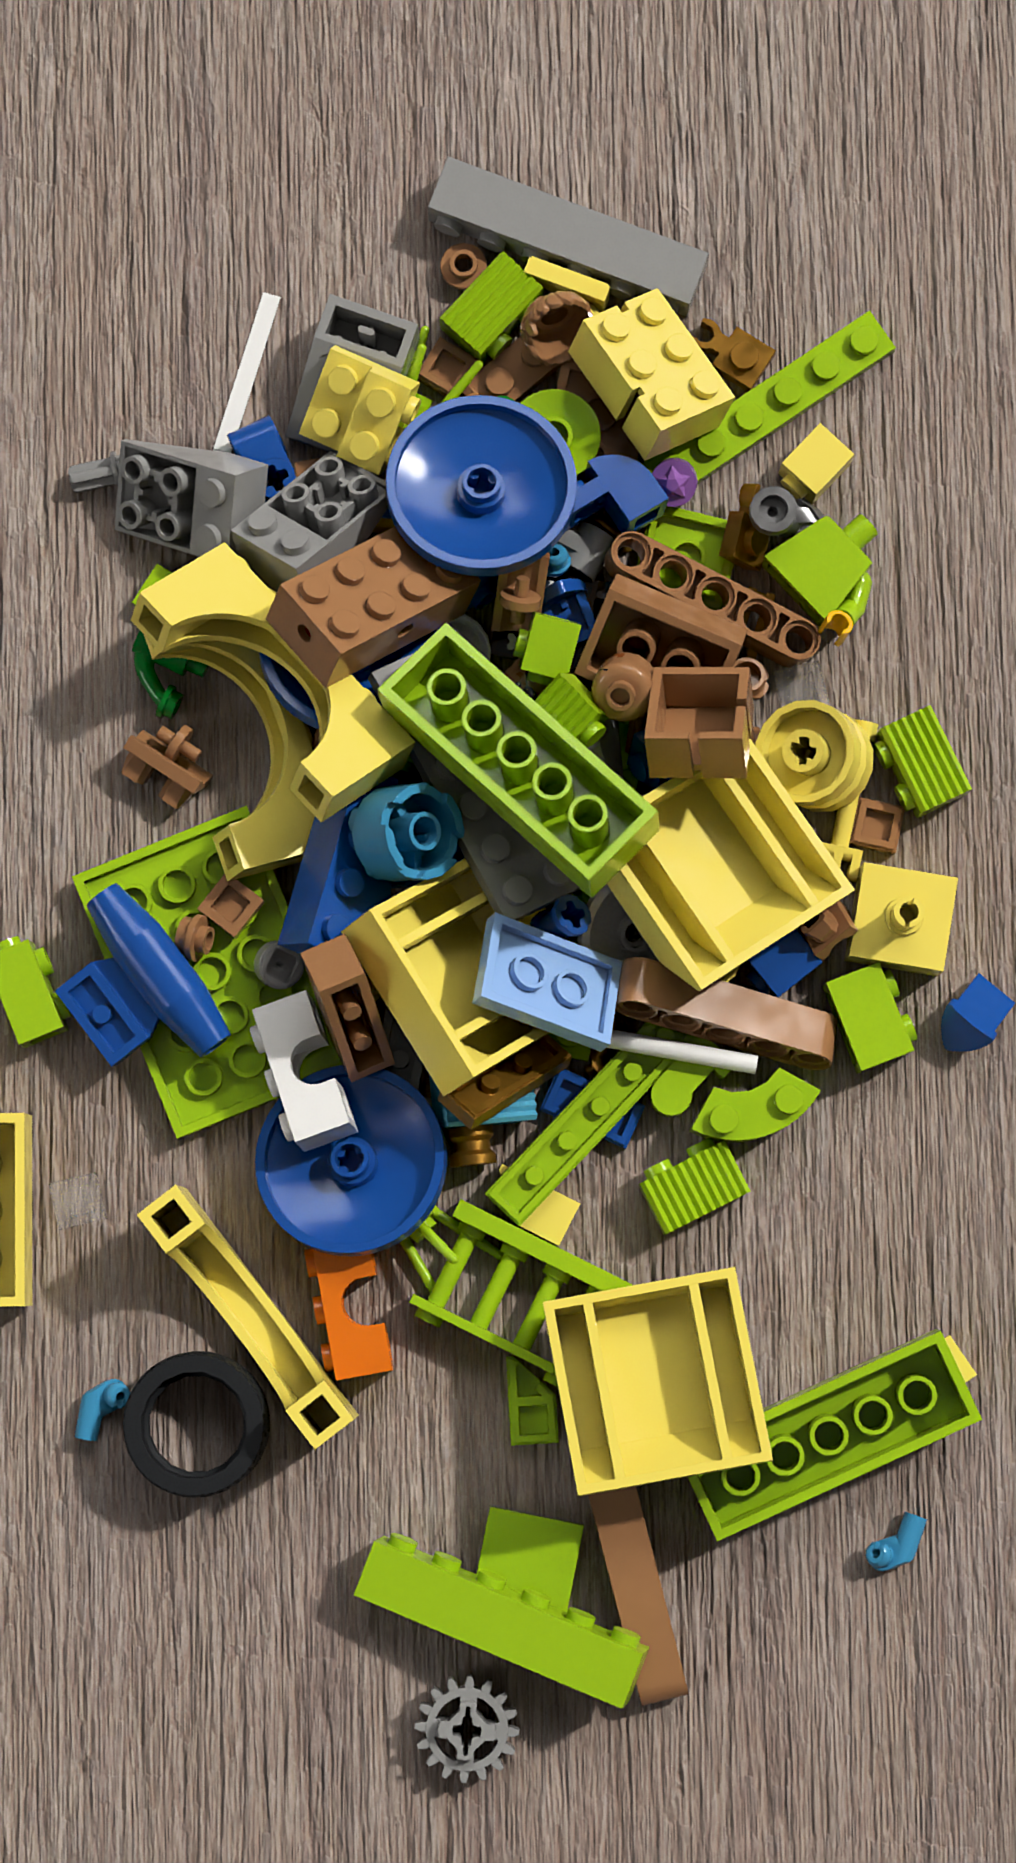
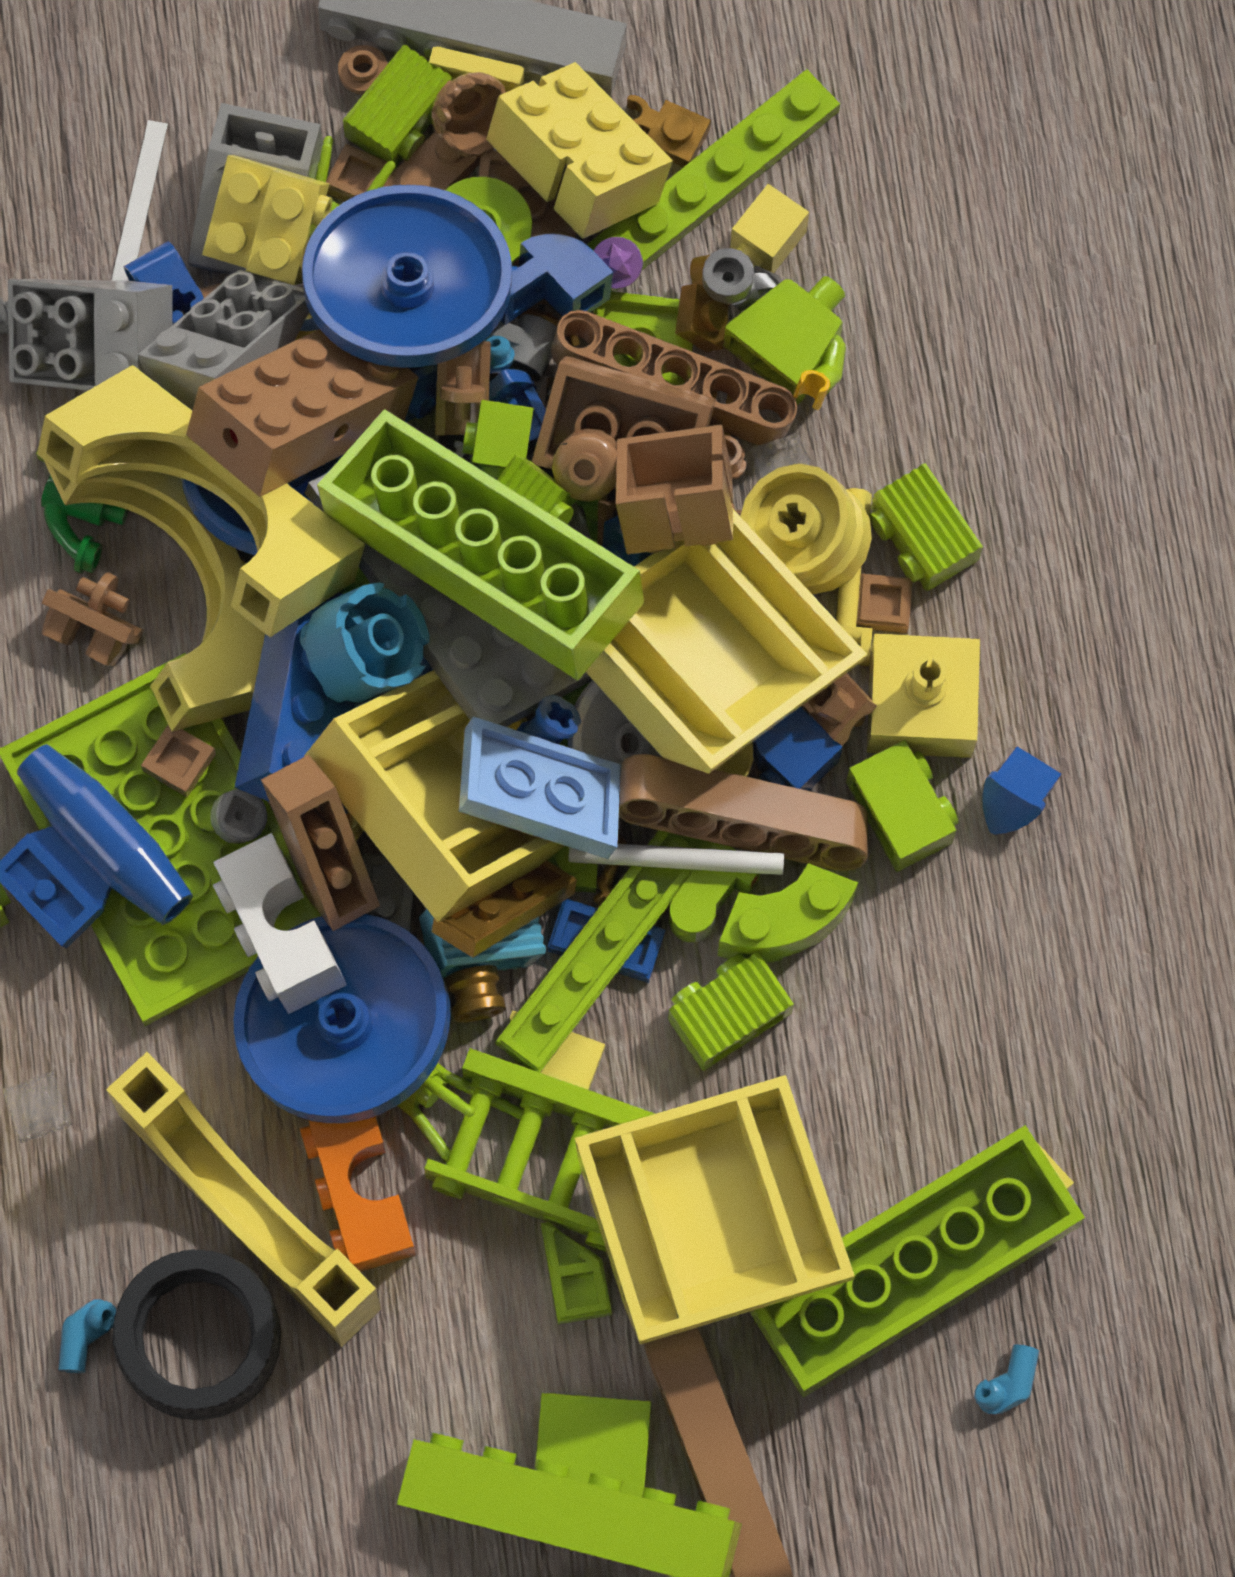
camera: 10 degrees left, 10 degrees down
(194, 937) = (141, 795): medium nougat plate -> none

